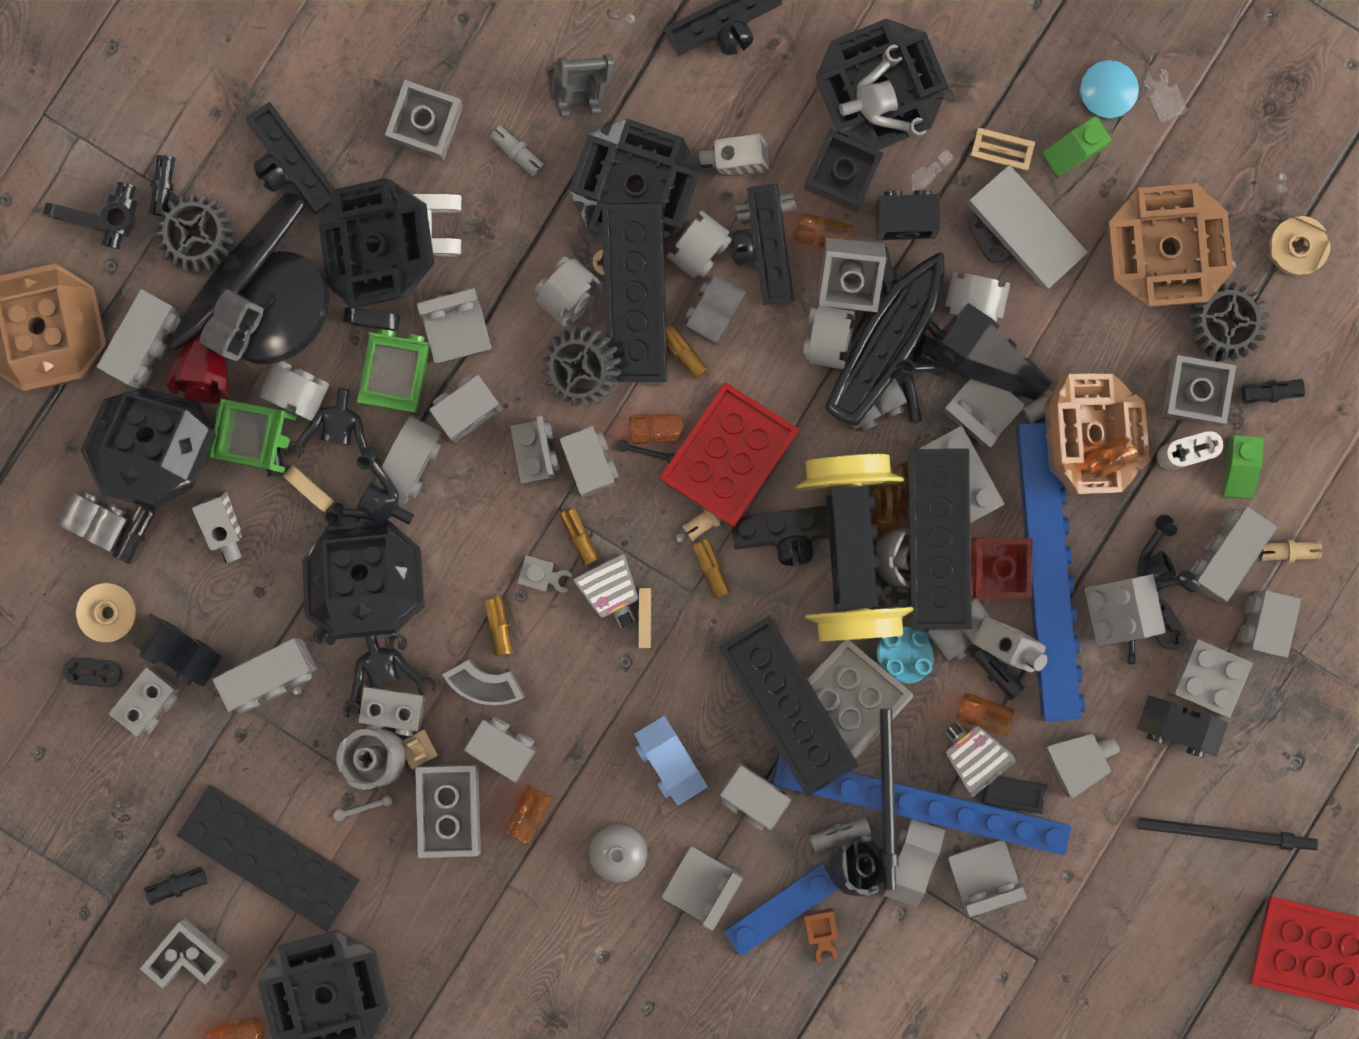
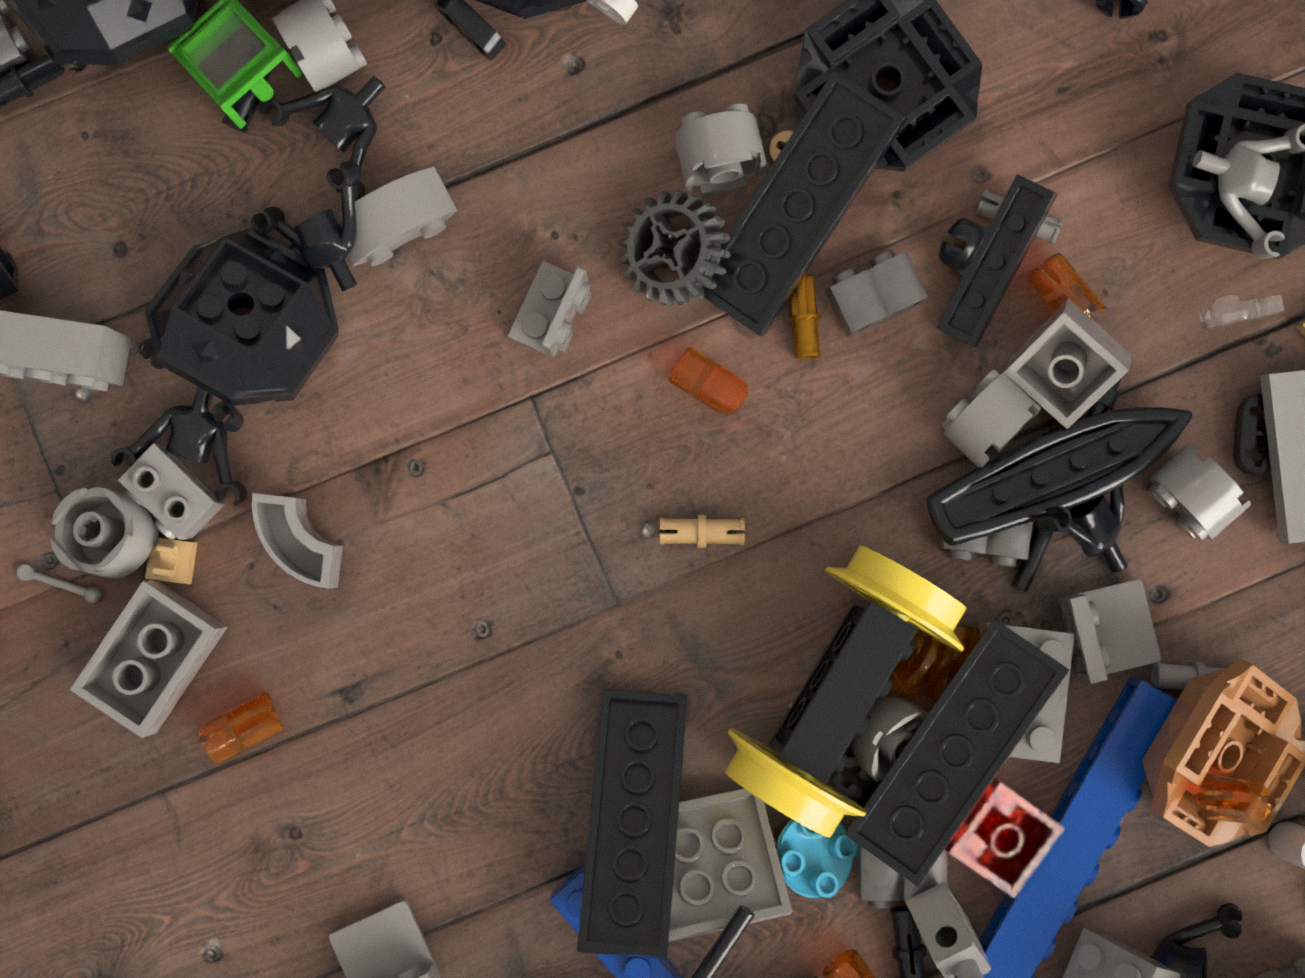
camera: 30 degrees right, 0 degrees up
(216, 513) = (123, 136): light grey torso -> none
(308, 488) = (258, 168): tan beam -> none
(394, 371) = (453, 103): window -> none
(455, 326) = (561, 98): light grey bracket -> none
(465, 408) = (503, 200): light grey brick -> none
(498, 626) = (364, 483): pearl gold axle -> none
(501, 748) = (261, 629): light grey brick -> none
(539, 574) = (455, 457): light grey plate -> none
(578, 536) = (531, 445): pearl gold axle -> none
(588, 462) = (603, 364): light grey brick -> none
(610, 590) = (523, 533): torso -> none
(618, 853) = (314, 847): light grey cylinder -> none
(624, 446) = (658, 378): black hinge -> none
(644, 617) = (539, 595): tan tile -> none
(670, 760) = (450, 783): light blue brick -> none
(698, 245) = (911, 201): light grey brick -> none
(711, 568) = (659, 592): pearl gold axle -> none
(729, 454) = (773, 474): red plate -> none
(749, 158) = (1031, 132): light grey torso -> none
(754, 796) = (516, 903): light grey brick -> none
(785, 530) = (775, 607): black plate -> none
(843, 170) = (1142, 235): black brick -> none
(907, 215) = (1183, 341): black brick -> none
(978, 351) = (1159, 562): black wedge -> none

